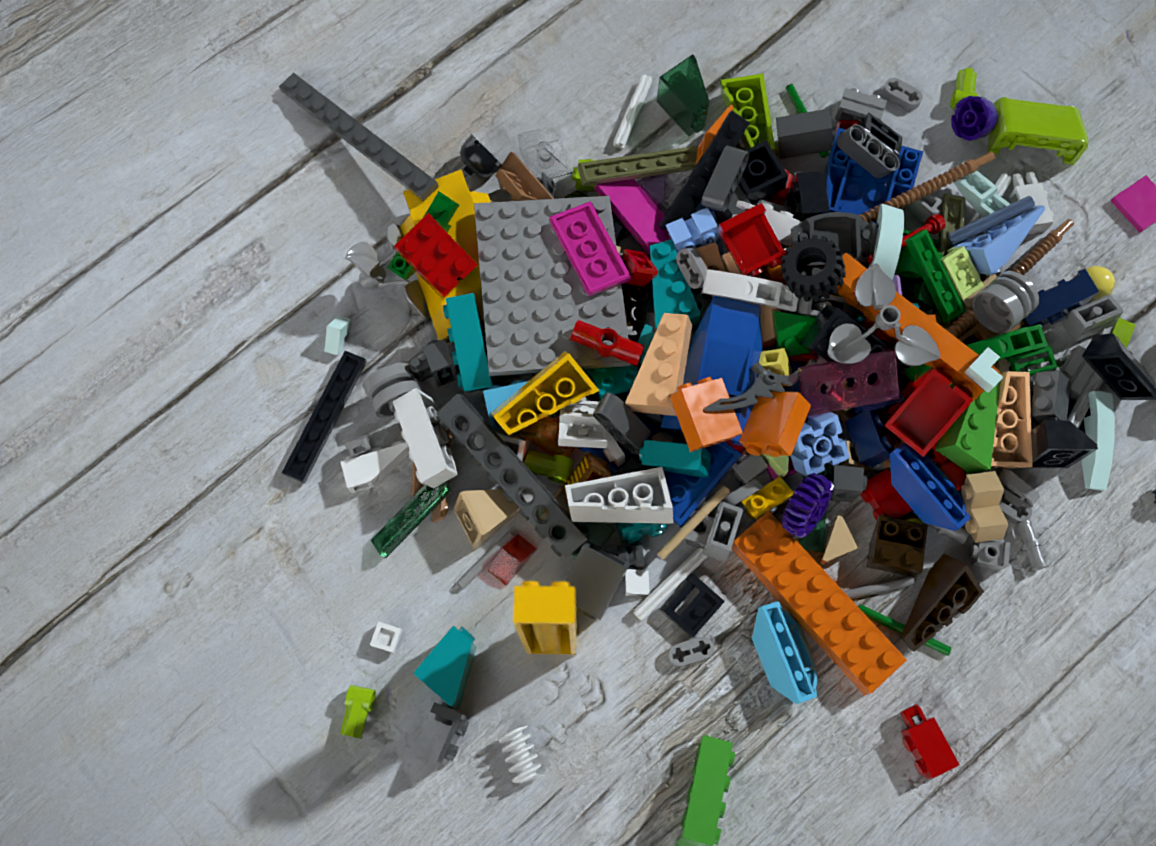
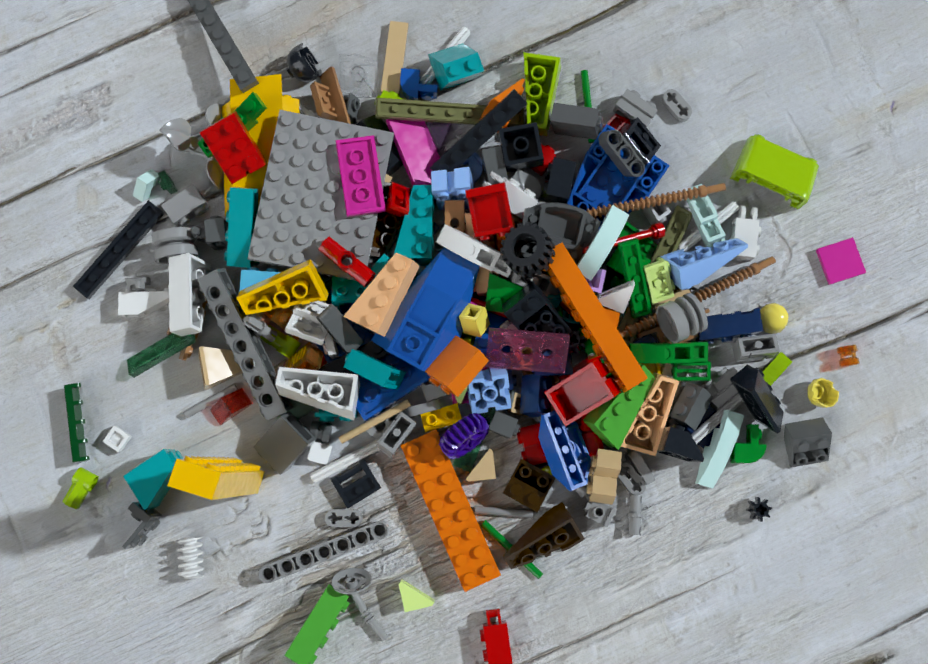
camera: 15 degrees right, 10 degrees up
(330, 632) = (75, 422): none -> dark green hinge
(360, 326) = (166, 182): none -> clear green plate
(390, 344) = (185, 206): none -> light grey brick
(525, 451) = (259, 328): none -> light grey axle
(576, 125) = (394, 56): none -> tan tile
(606, 147) = (413, 89): none -> blue brick
(652, 113) = (455, 65): none -> teal slope
(684, 96) = (491, 51): clear green slope -> none
(690, 688) = (317, 558): none -> light grey beam
(692, 268) = (438, 215): light grey beam -> none
(700, 426) = (400, 345): orange brick -> none
(725, 178) = (490, 147): dark grey beam -> none
(731, 728) = (351, 586): none -> light grey dish
(764, 382) = (459, 331): dark grey piece -> none
(784, 653) = (413, 542): medium azure wedge -> none
(807, 722) = (413, 597): none -> yellowish green slope
(877, 289) = (534, 323): light grey plant -> none
(929, 296) = (617, 297): none -> white slope
(964, 86) = (728, 121): lime piece -> none
(974, 118) = (725, 147): dark purple cylinder -> none
(982, 372) = (631, 376): light aqua piece -> none
(991, 220) = (704, 242): sand blue axle -> none
(1132, 430) = (751, 450): none -> green brick

